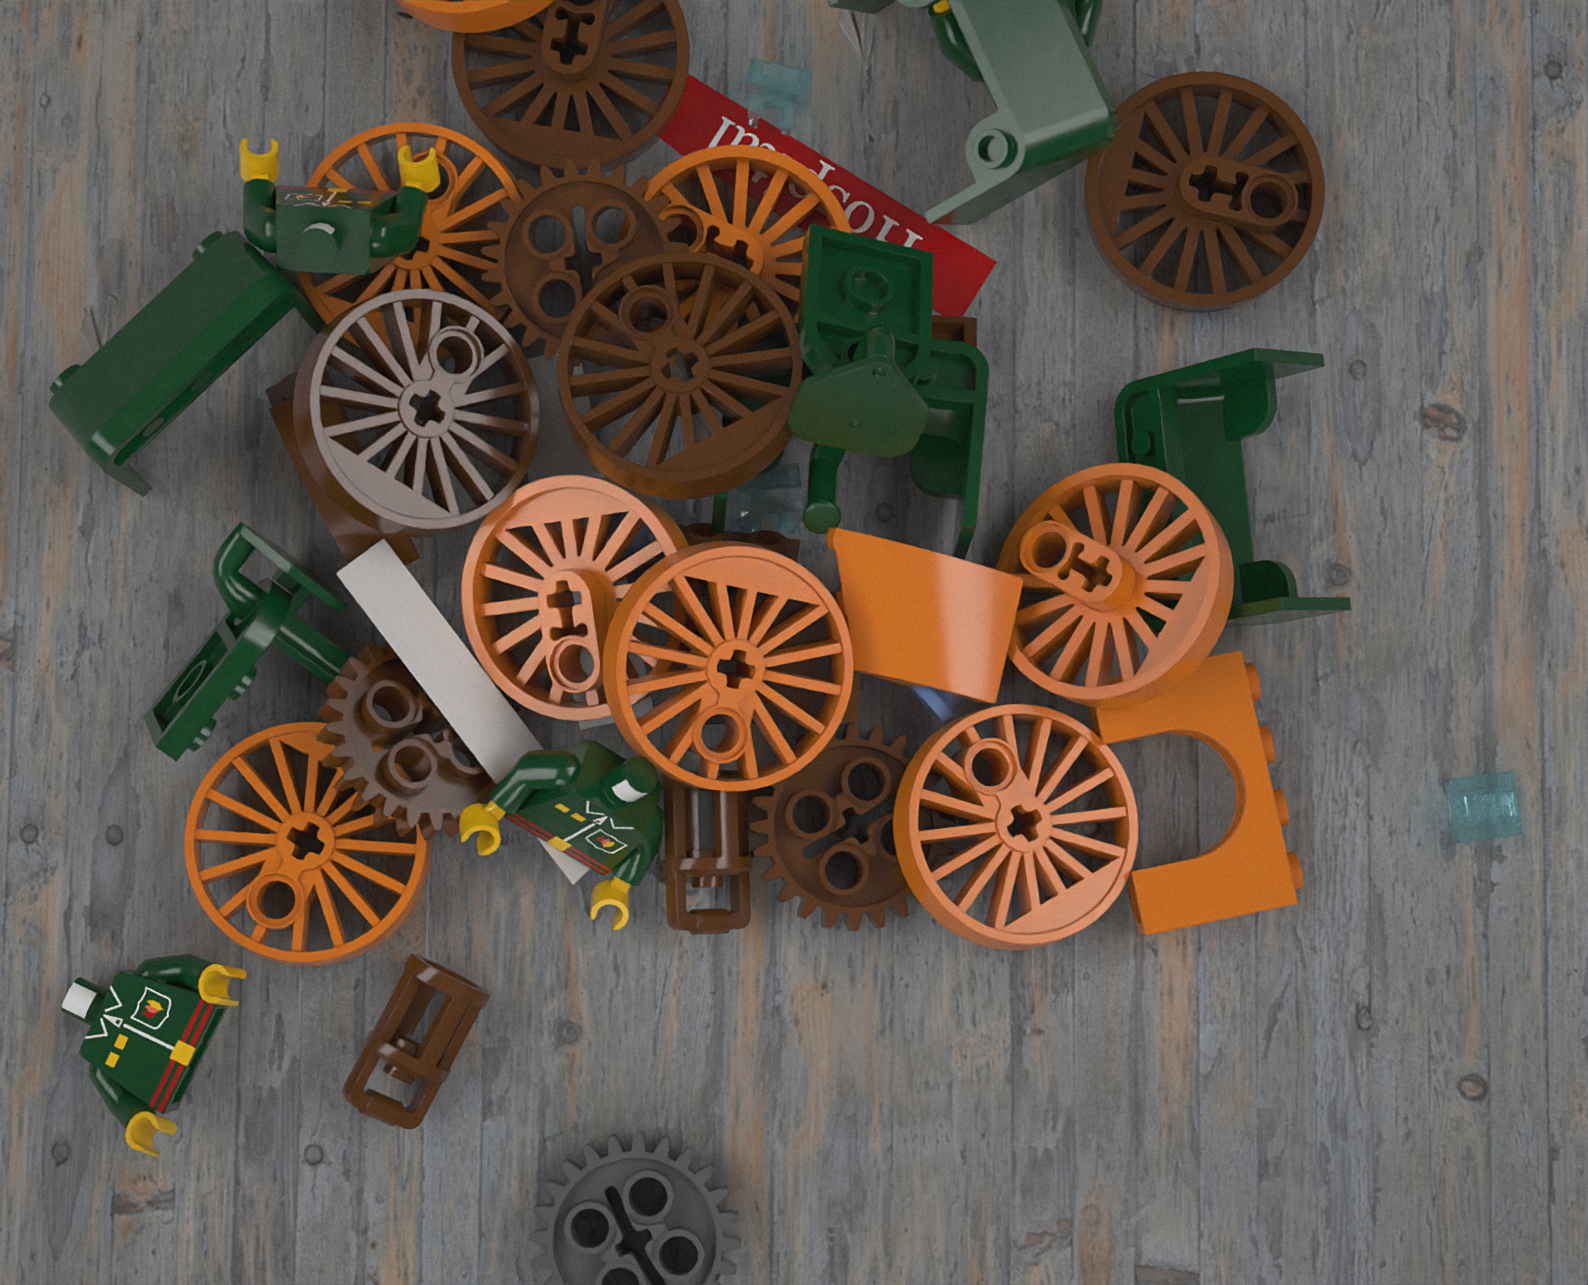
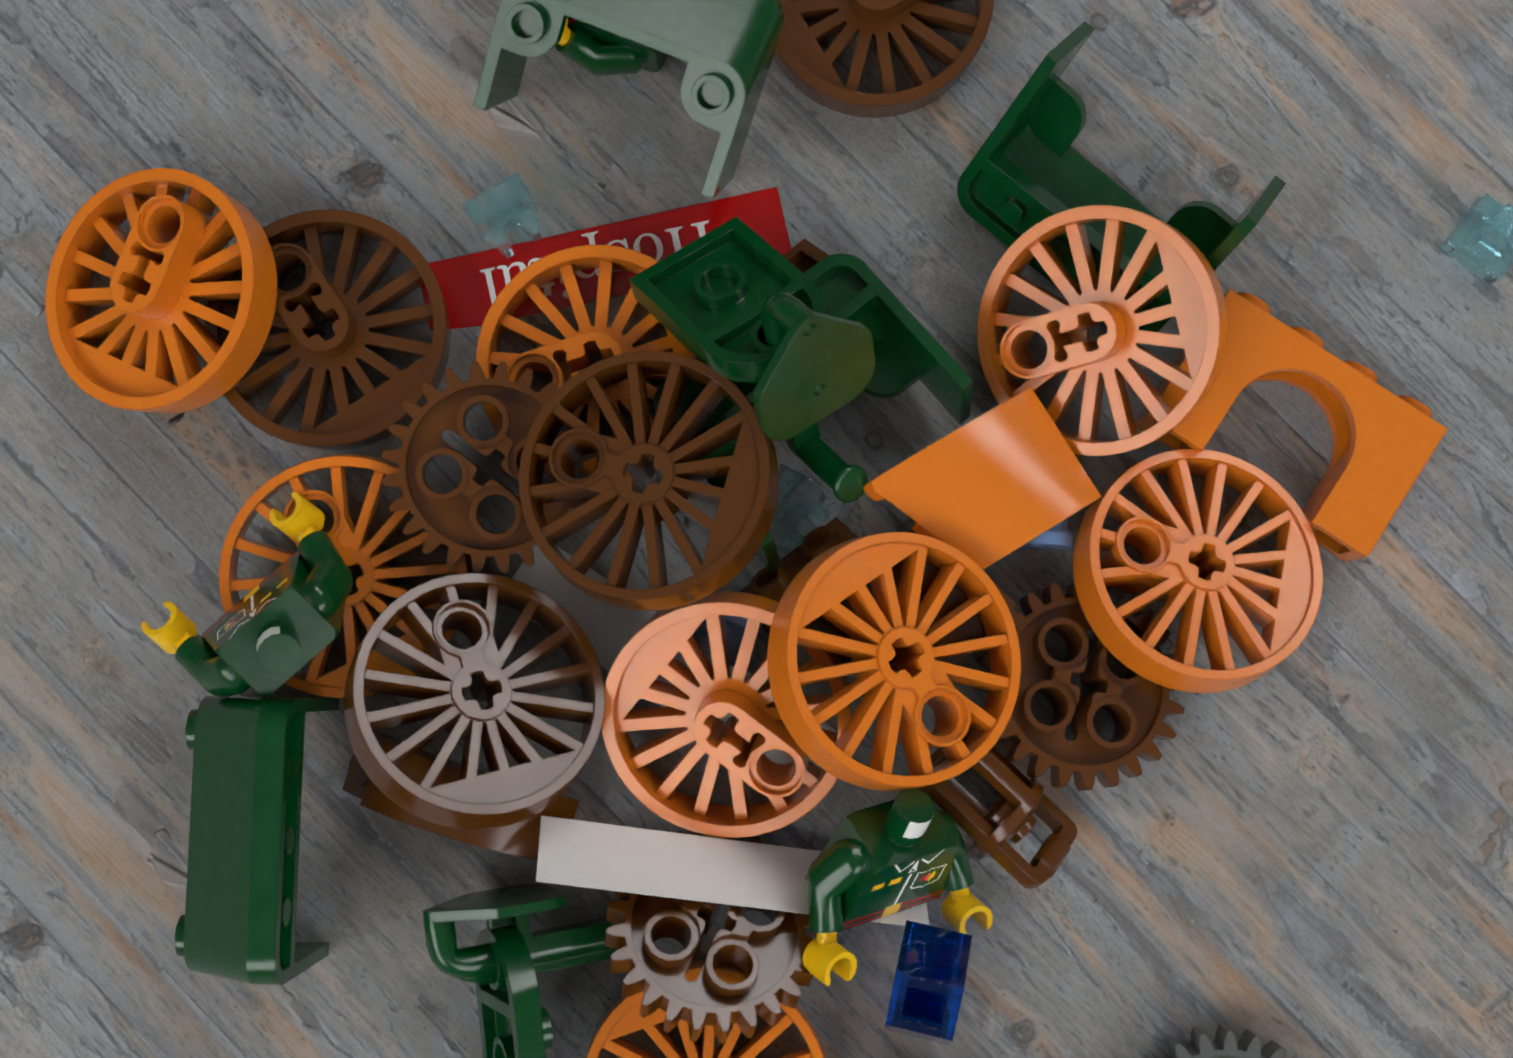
camera: 50 degrees left, 0 degrees up
(531, 918) = (929, 982): none -> clear blue slope

